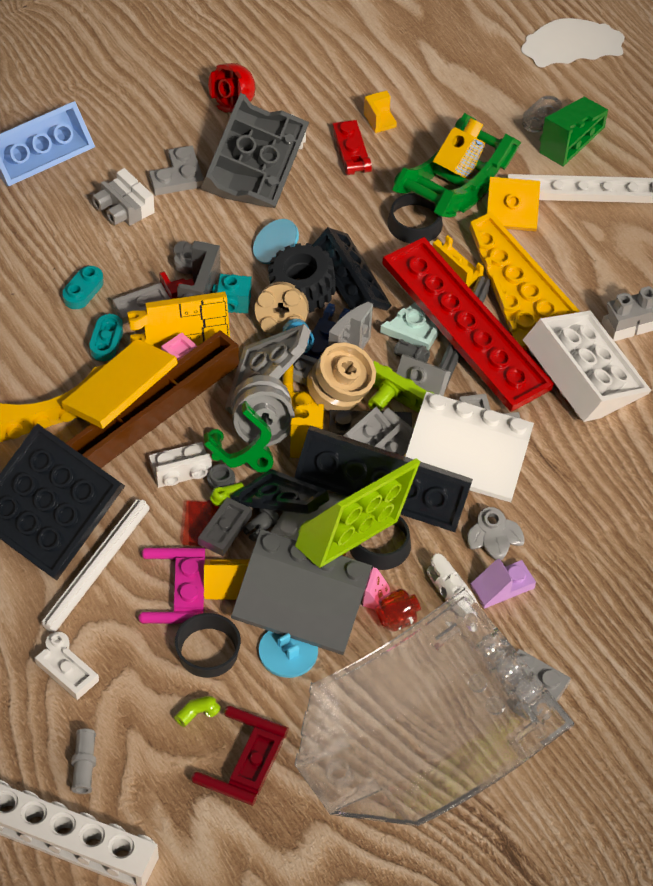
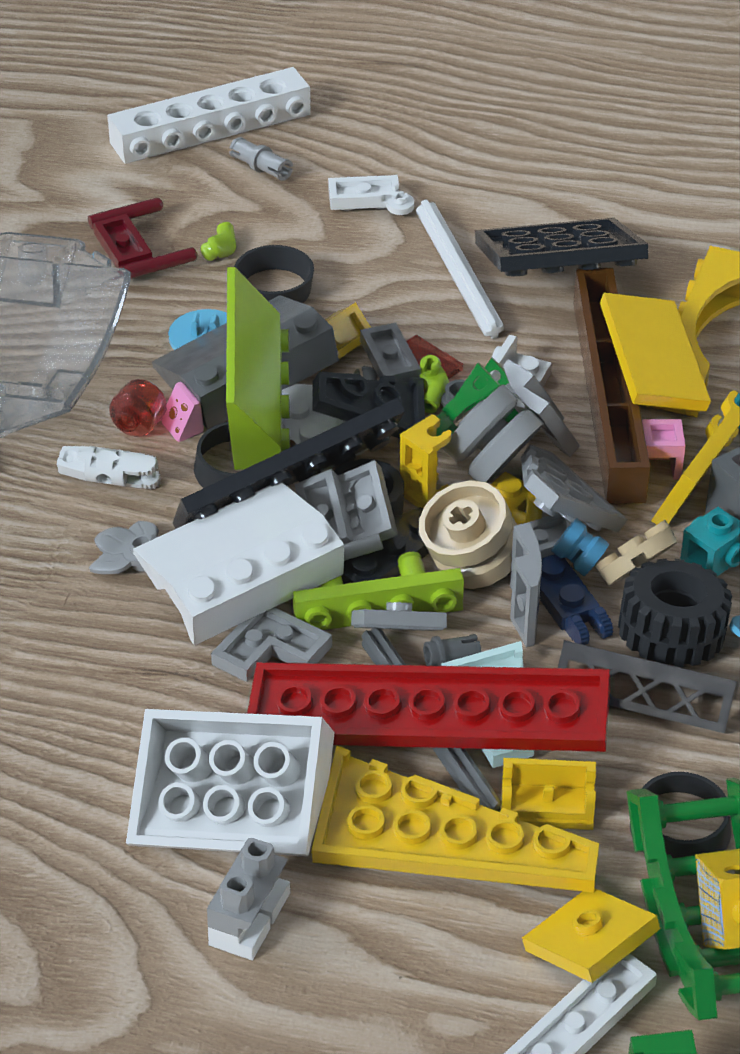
camera: 135 degrees right, 10 degrees down
(188, 584) = (338, 294): dark pink plate -> none
(212, 413) = (539, 402): none -> light grey slope
(502, 582) = (64, 516): lavender slope -> none

